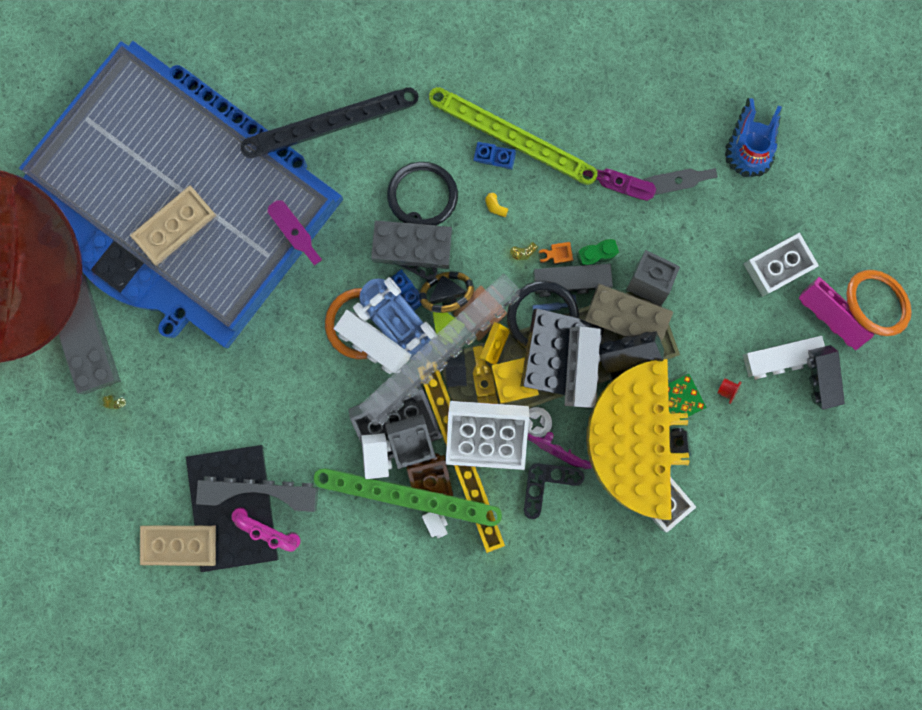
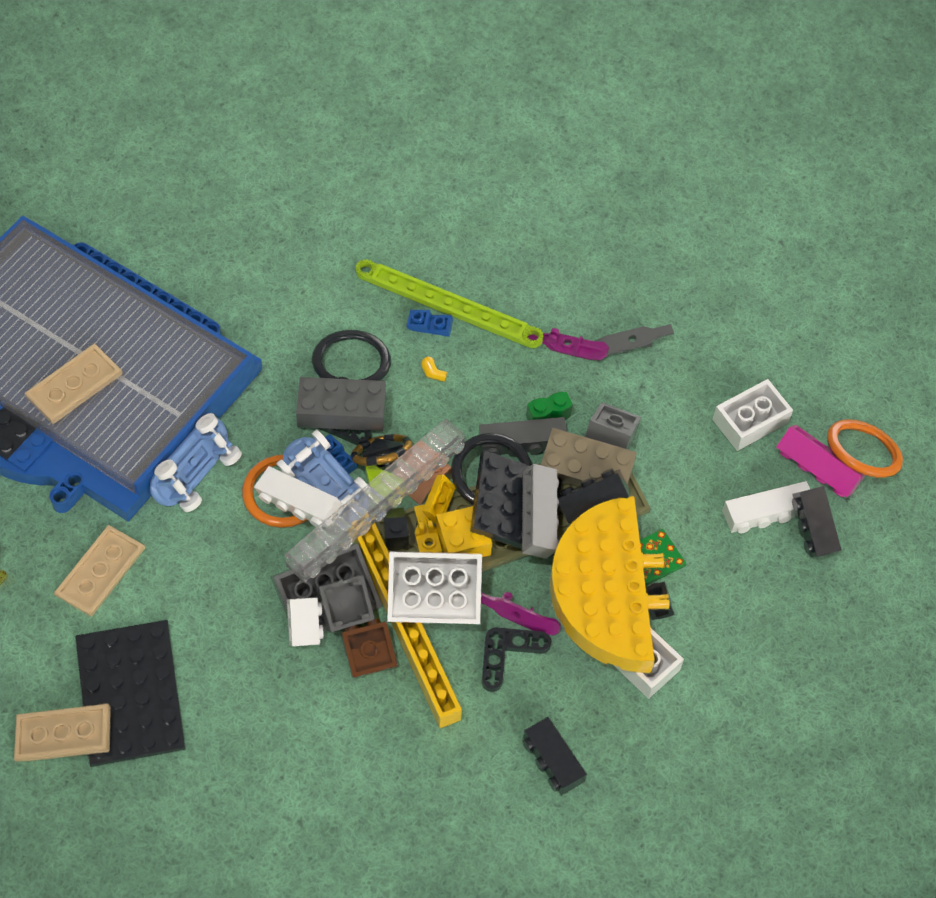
camera: 10 degrees left, 25 degrees down
(204, 395) = (99, 570): none -> tan tile
(280, 298) = (191, 462): none -> medium blue piece
(286, 542) = (149, 690): dark pink bar -> none
(288, 223) = (204, 376): magenta piece -> none
(297, 497) = (115, 665): dark grey arch -> none
(328, 122) = (246, 288): black plate -> none
(408, 497) = (343, 663): bright green plate -> none
(435, 524) = (377, 696): white brick -> none
(523, 253) = (466, 415): clear yellow arm -> none
(546, 422) = (502, 583): white gear -> none
(559, 253) = (505, 412): orange plate -> none
(579, 582) = (553, 756): none -> black brick
(729, 389) = (710, 542): red piece -> none
(752, 143) = (709, 304): blue piece -> none

